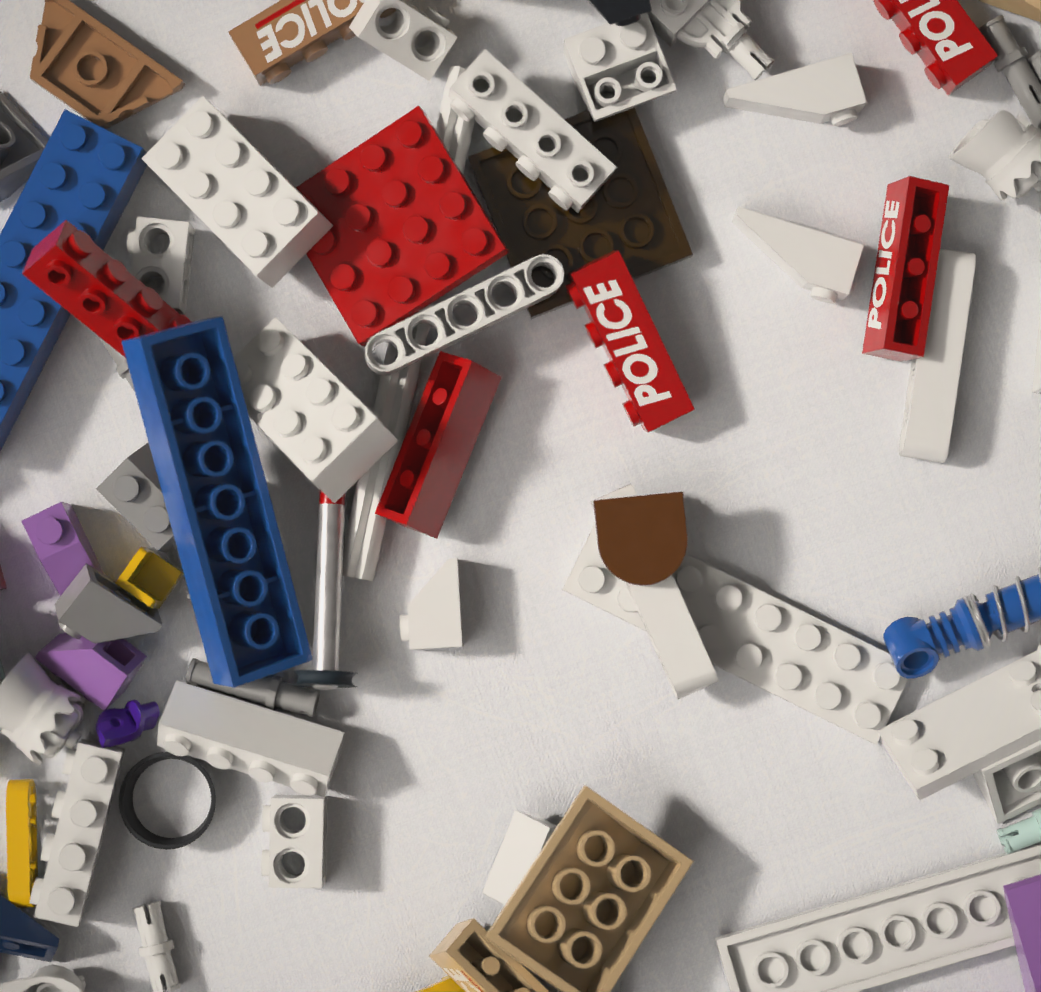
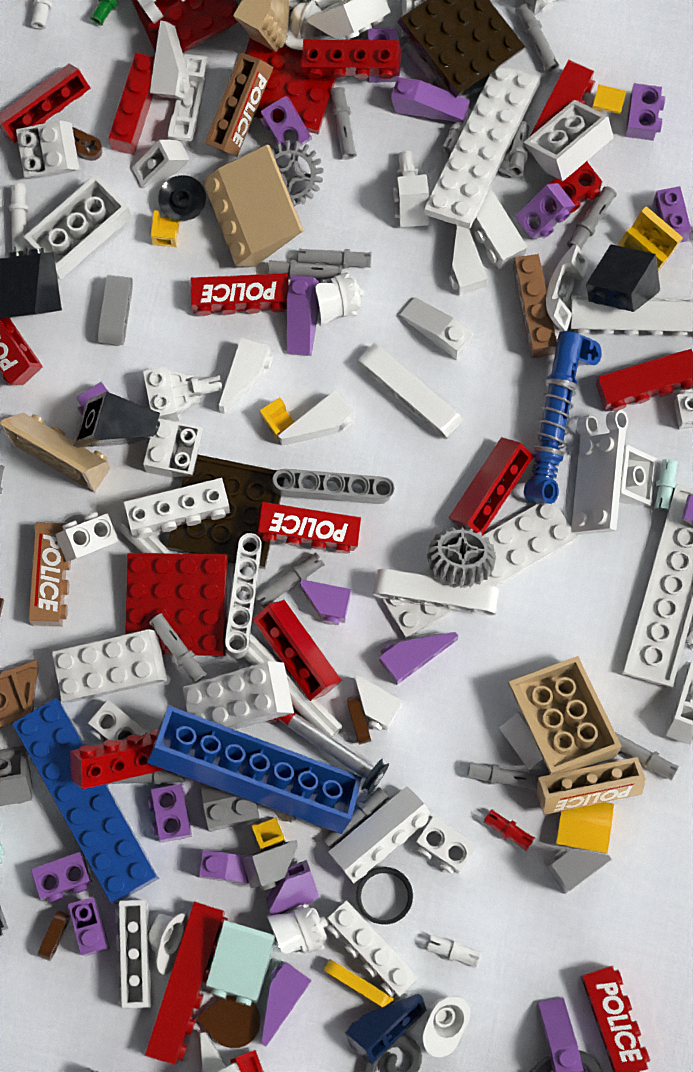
camera: 55 degrees left, 10 degrees down
(97, 429) = (177, 811): none -> medium lavender brick
(126, 724) = (333, 890): dark purple piece -> none
(319, 287) = (184, 657): none -> light grey pin
(378, 917) = (509, 830): none -> red pin
(396, 599) = (358, 720): none -> reddish brown beam
(452, 862) = (503, 776): none -> light grey pin
(537, 366) = (289, 580): none -> light grey pin
(538, 613) = (410, 655): none -> medium lavender slope
(541, 441) = (327, 600): none -> medium lavender slope
(641, 536) = (405, 578): reddish brown tile -> none
(733, 348) = (343, 481): none -> light grey beam
(751, 610) = (461, 557): none -> light grey gear
(767, 186) = (276, 417): none -> yellow panel
(868, 570) = (491, 486): none -> red brick
(905, 269) = (359, 378): red brick -> none
(947, 119) = (301, 315): none -> medium lavender slope

